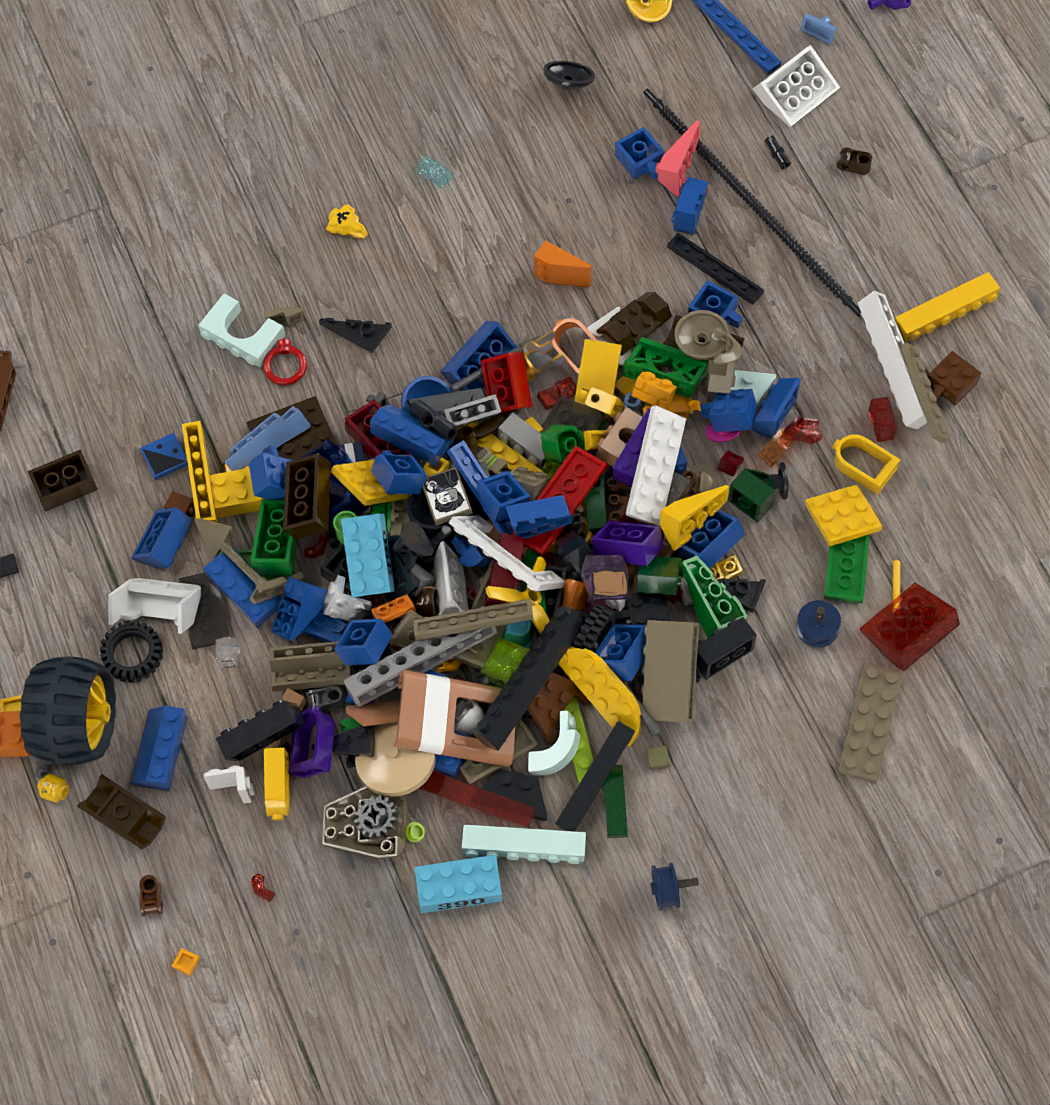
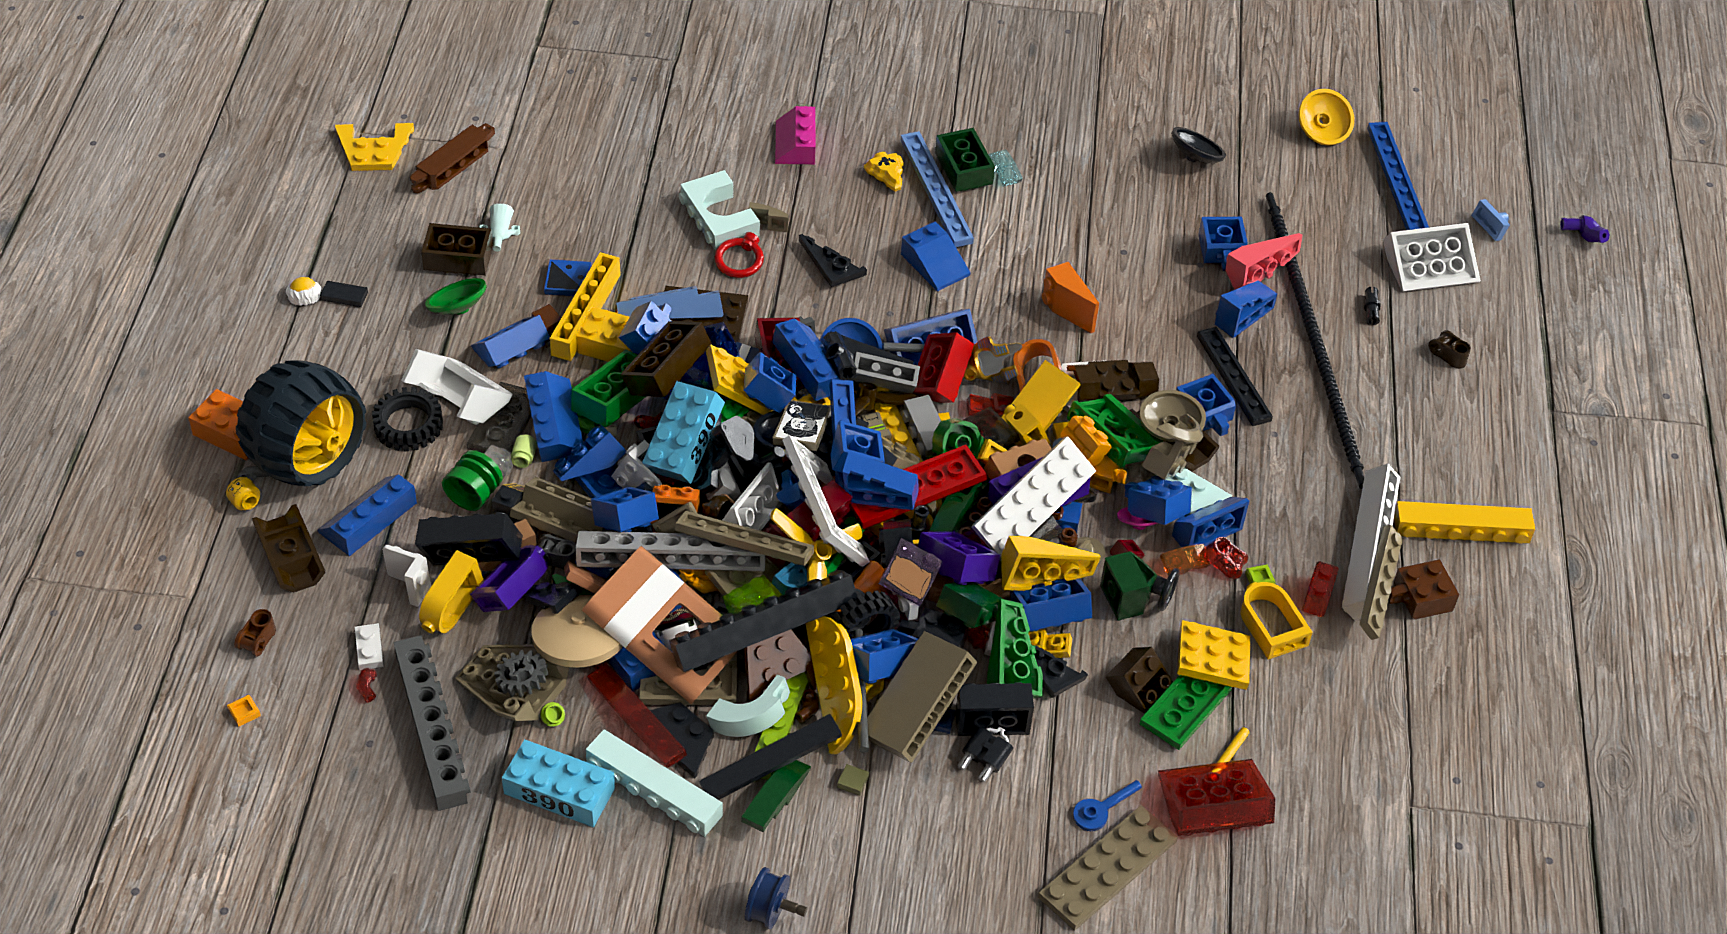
camera: 25 degrees right, 15 degrees down
(75, 434) = (499, 223): none -> light aqua piece
(93, 523) = (456, 297): none -> green dish
(214, 538) = (564, 420): dark tan piece -> none
(223, 678) = (472, 480): none -> green wheel
(240, 628) = (523, 451): none -> yellowish green brick
(240, 856) = (369, 646): none -> white plate
(255, 229) = (796, 137): none -> dark pink slope
(260, 676) = (506, 498): none -> black slope
(381, 940) = (446, 793): none -> dark grey brick
(395, 219) = (936, 189): none -> medium blue plate
(401, 182) = (964, 159): none -> dark green brick
(434, 283) = (934, 256): none -> blue slope
(591, 718) = (810, 706): none -> reddish brown arm
(736, 680) = (987, 750): none -> black piece
(804, 563) = (1139, 678): none -> dark brown slope
(818, 623) = (1114, 741): dark blue wheel -> none
(834, 431) = (1259, 574): none -> lime tile
(834, 686) = (1093, 814): none -> blue piece

